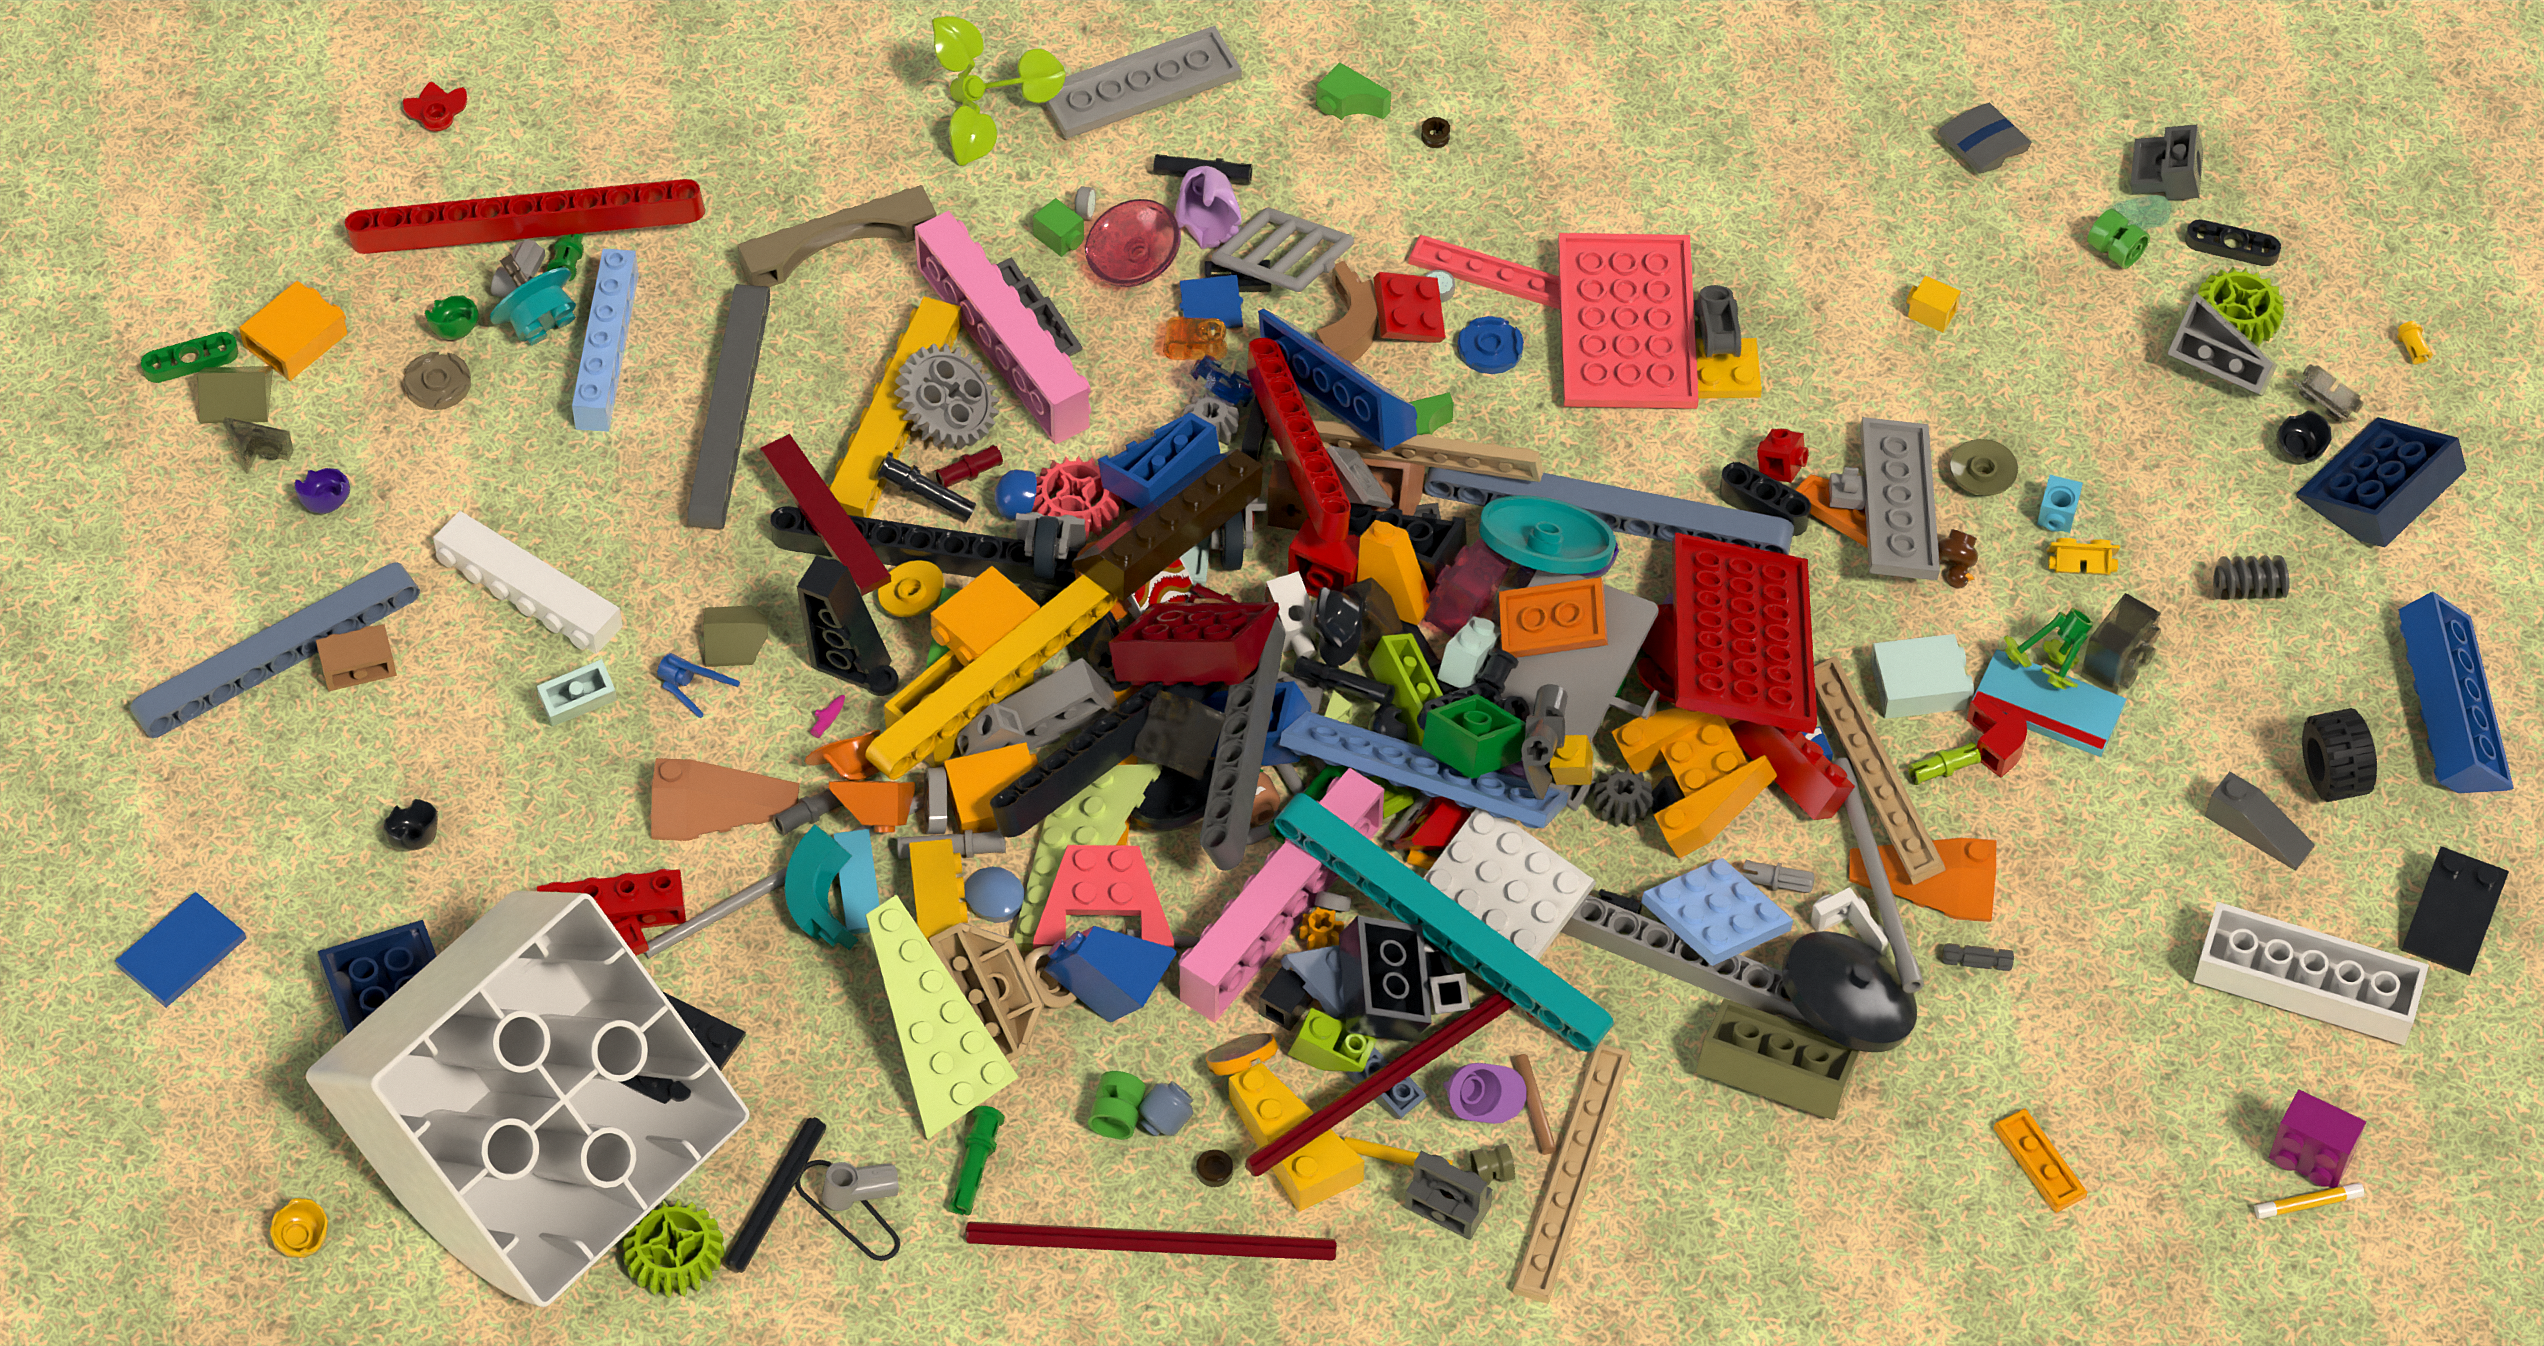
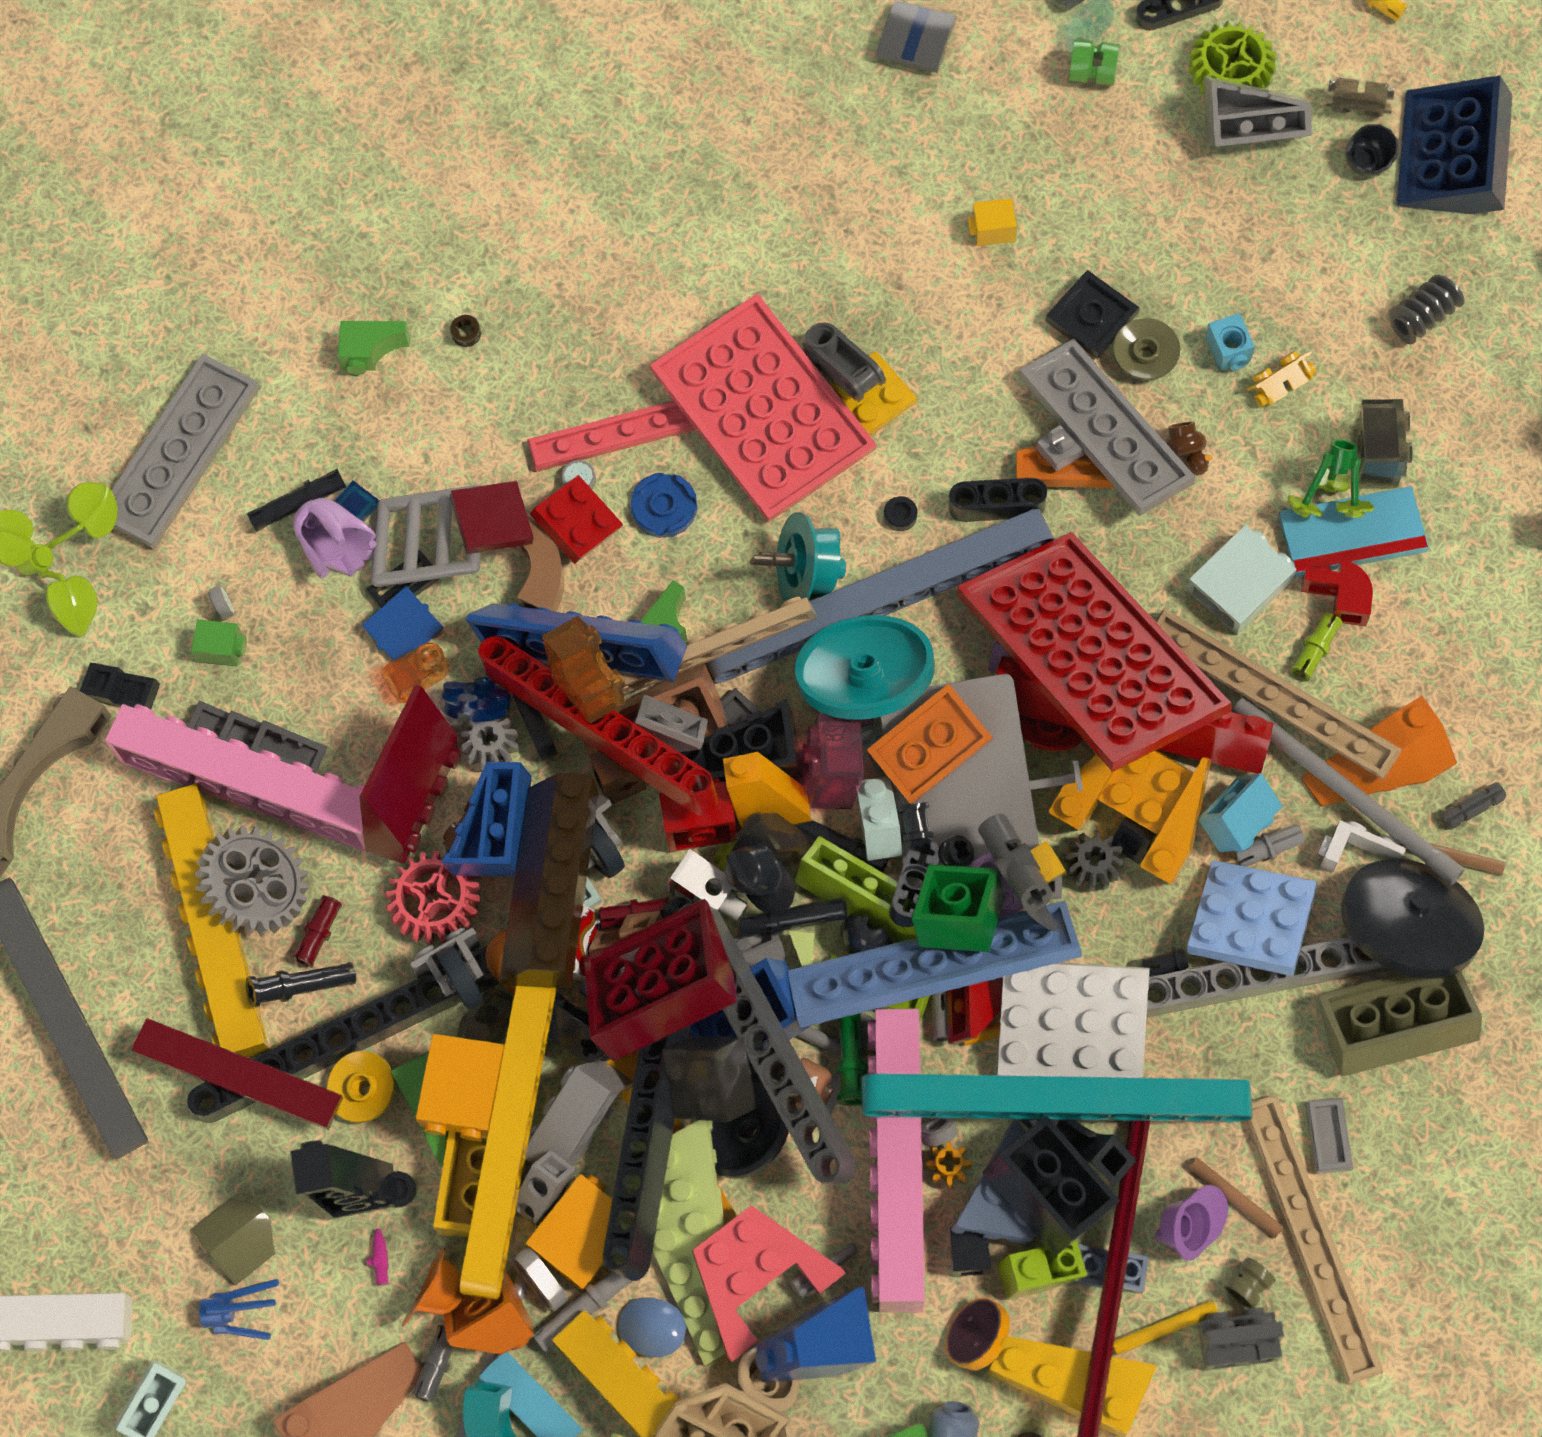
camera: 30 degrees left, 15 degrees up
(960, 207) = (116, 687): none -> black slope
(1015, 493) = (383, 932): blue hair -> none
(1121, 390) = (408, 779): none -> dark red slope
(1130, 230) = (278, 611): clear pink dish -> none
(1249, 198) = (357, 501): none -> clear blue tile
(1315, 382) = (582, 669): none -> clear orange brick
(1340, 260) = (491, 517): none -> dark red tile
(1570, 442) = (805, 558): none -> teal piece
(1650, 1110) = (1329, 1135): none -> light grey tile
(1678, 465) = (900, 513): none -> black tile
(1771, 831) = (1240, 813): none -> medium azure brick
(1782, 454) = (983, 450): red brick -> none
(1940, 993) = (1472, 860): none -> medium nougat bar
(1959, 416) = (1092, 314): none -> black plate

